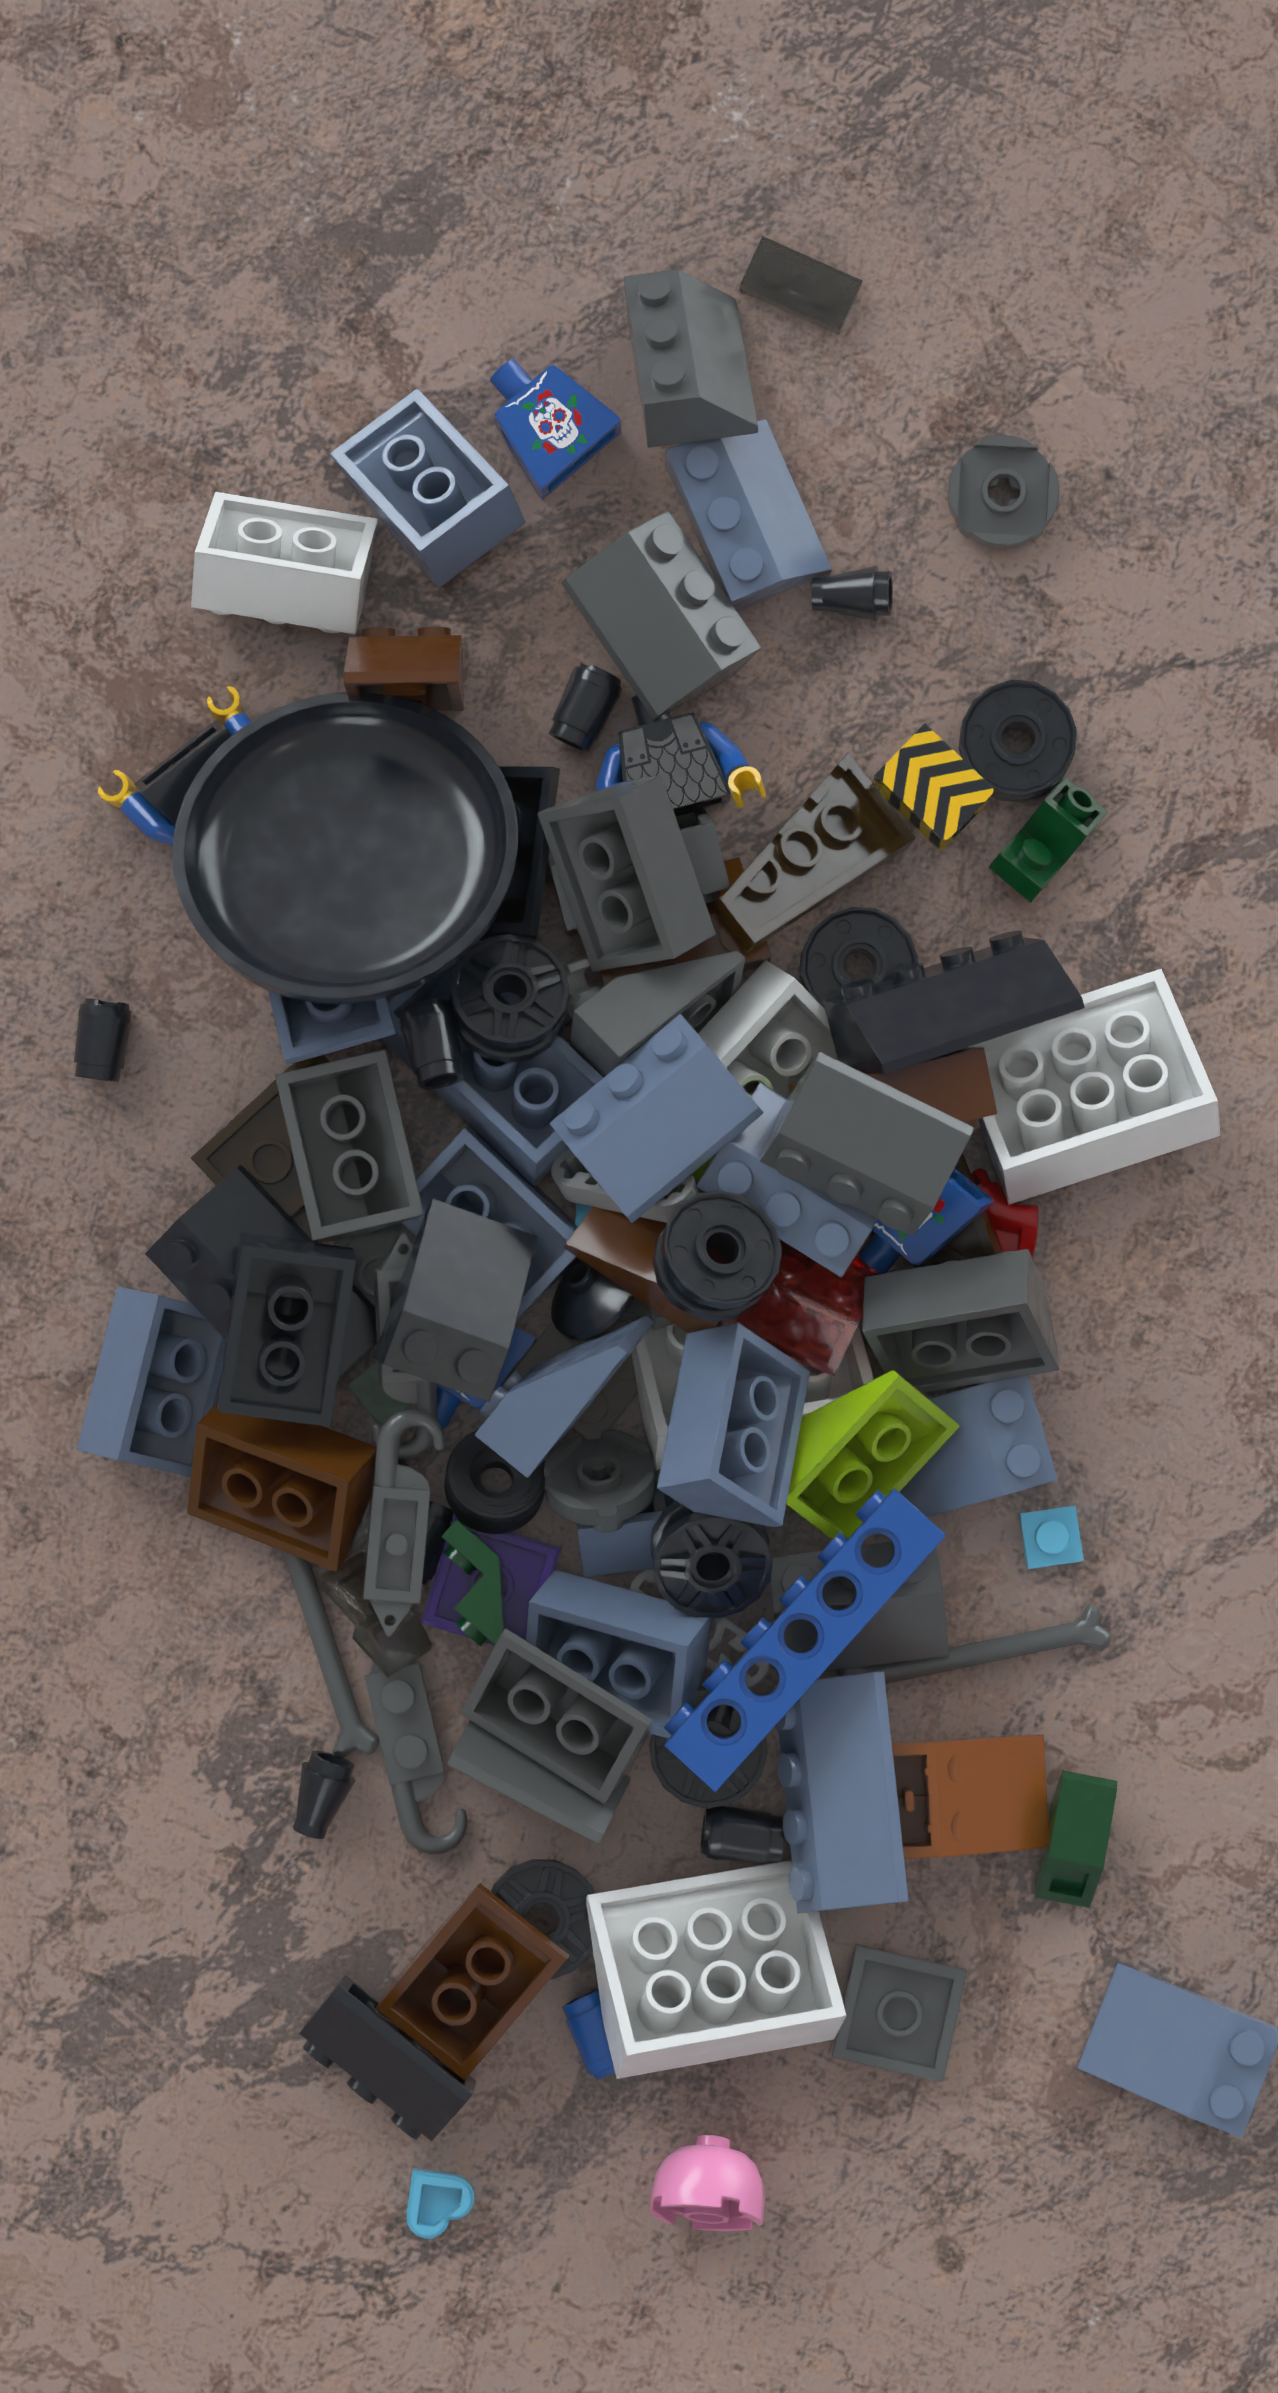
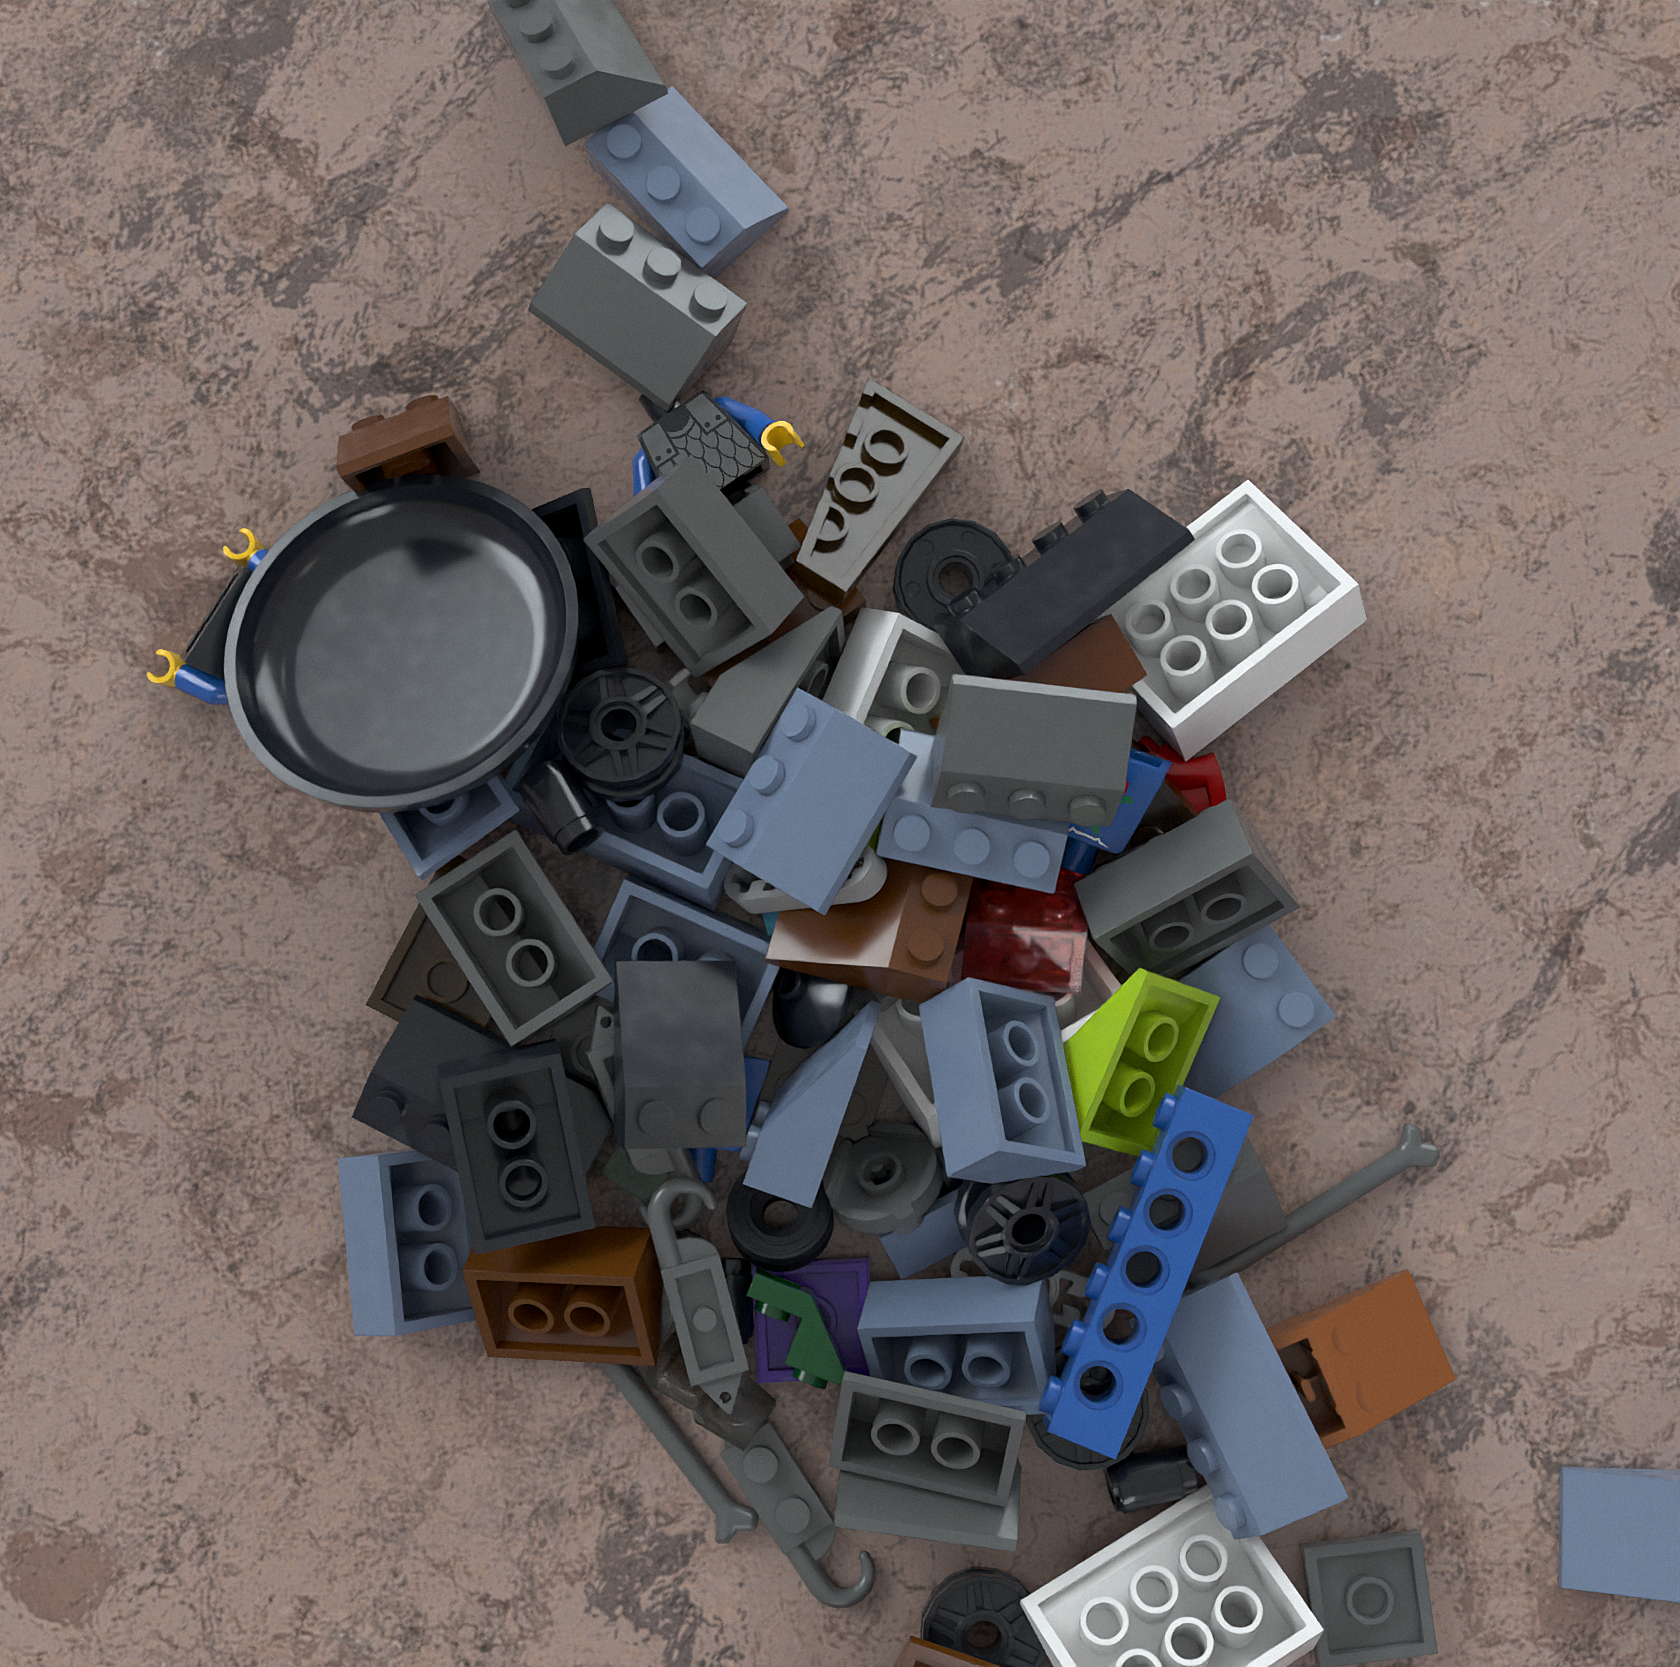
camera: 15 degrees left, 0 degrees up
(102, 1039) = (237, 919): black piece -> none
(283, 563) = (250, 391): white slope -> none
(322, 1791) = (719, 1585): black cone -> none
(429, 487) = (369, 266): sand blue slope -> none
(550, 424) = (465, 162): blue torso -> none
(585, 706) = (596, 424): black piece -> none
(735, 1229) = (927, 883): black wheel -> none
(856, 593) = (819, 222): black cone -> none
(933, 787) = (964, 380): piece -> none
(1024, 707) = (1036, 273): black wheel -> none
(1027, 472) = (944, 46): dark grey plate -> none
(1048, 839) = (1093, 392): dark green slope -> none
(1051, 1537) = (1344, 1072): medium azure plate -> none
(1077, 1839) = (1483, 1360): dark green slope -> none

